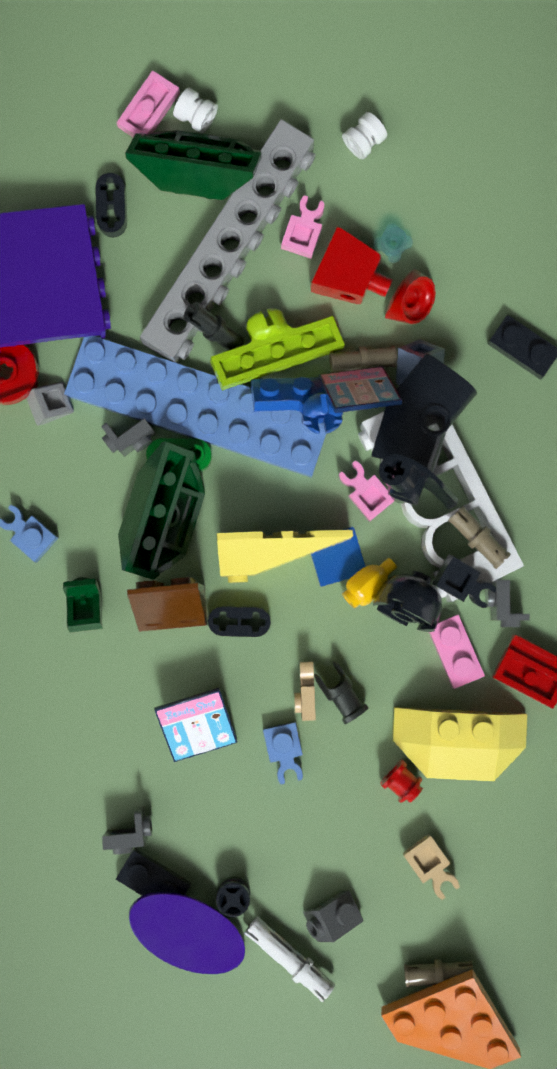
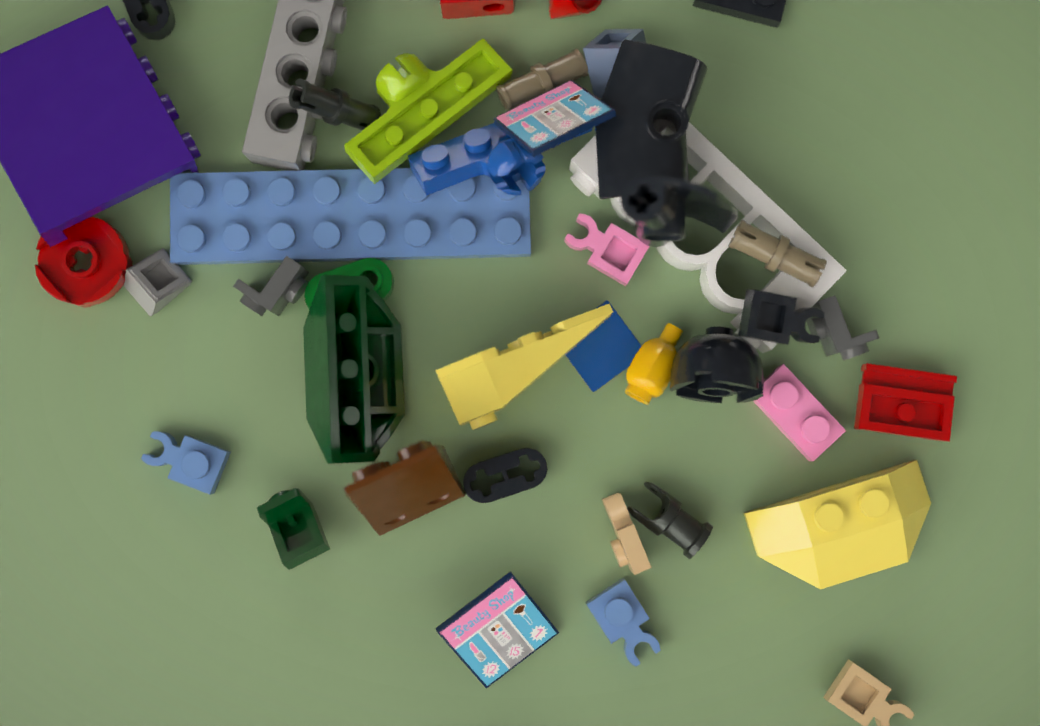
camera: 25 degrees left, 0 degrees up
(402, 782) = (791, 606): red brick -> none

